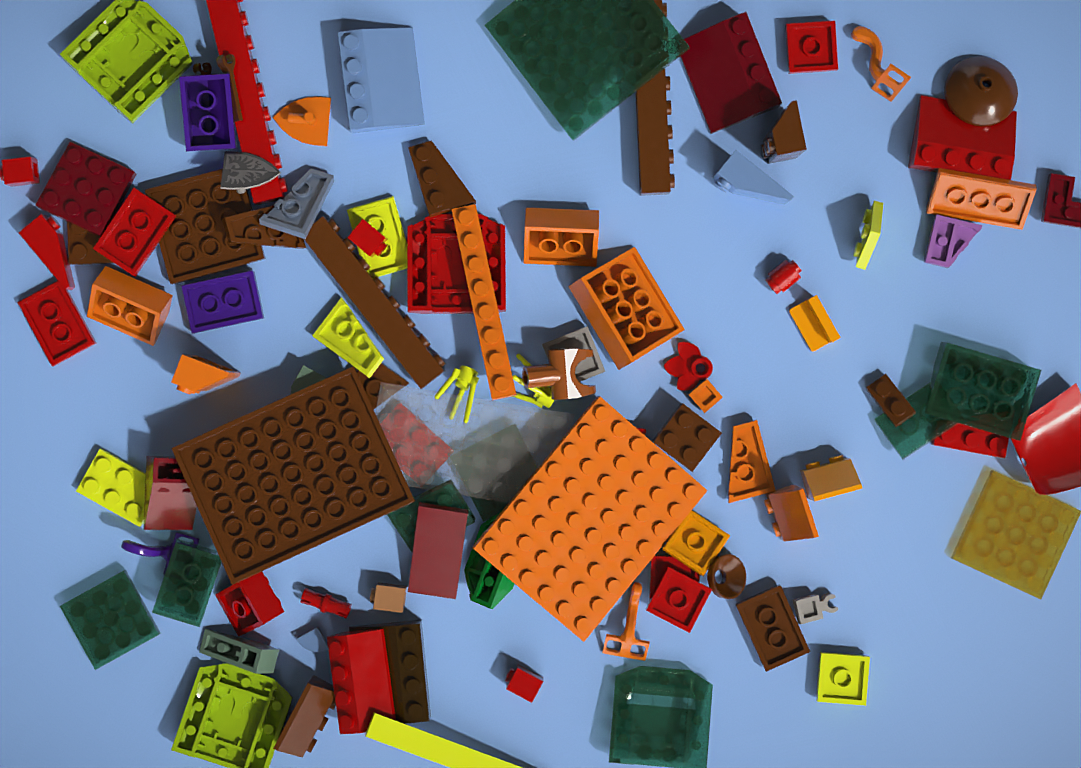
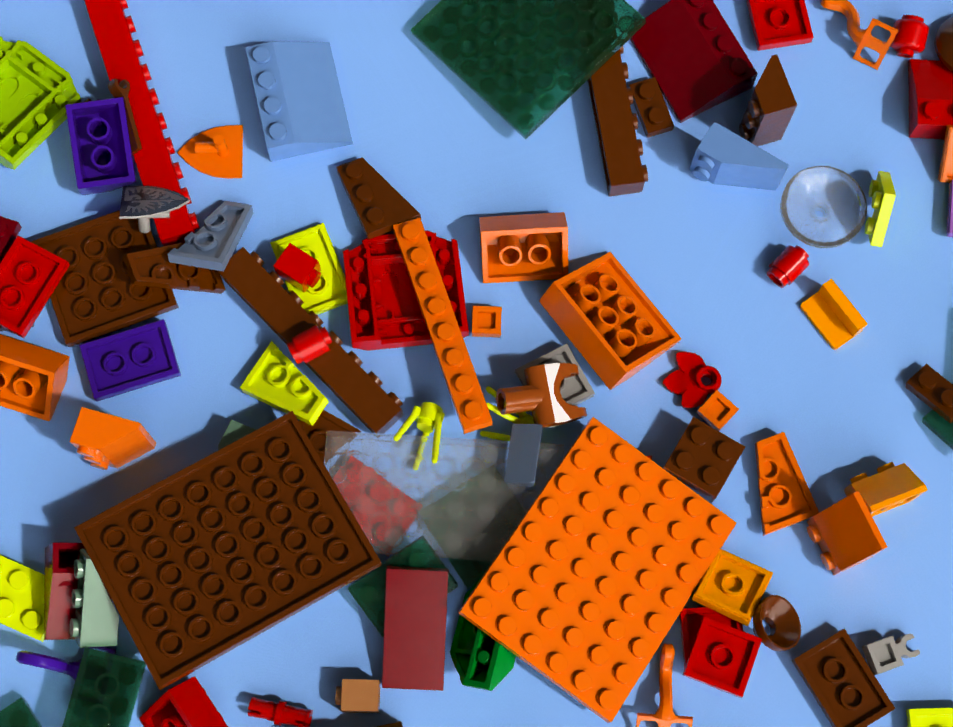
camera: 10 degrees left, 15 degrees down
(184, 518) = (95, 615): none -> slope
(372, 310) = (310, 344): none -> red brick
(522, 299) = (486, 321): none -> orange plate
(539, 422) = (523, 454): none -> sand blue slope
(687, 117) = (651, 107): none -> reddish brown plate
(837, 226) = (825, 191): none -> clear dish
(923, 75) = (910, 36): none -> red head

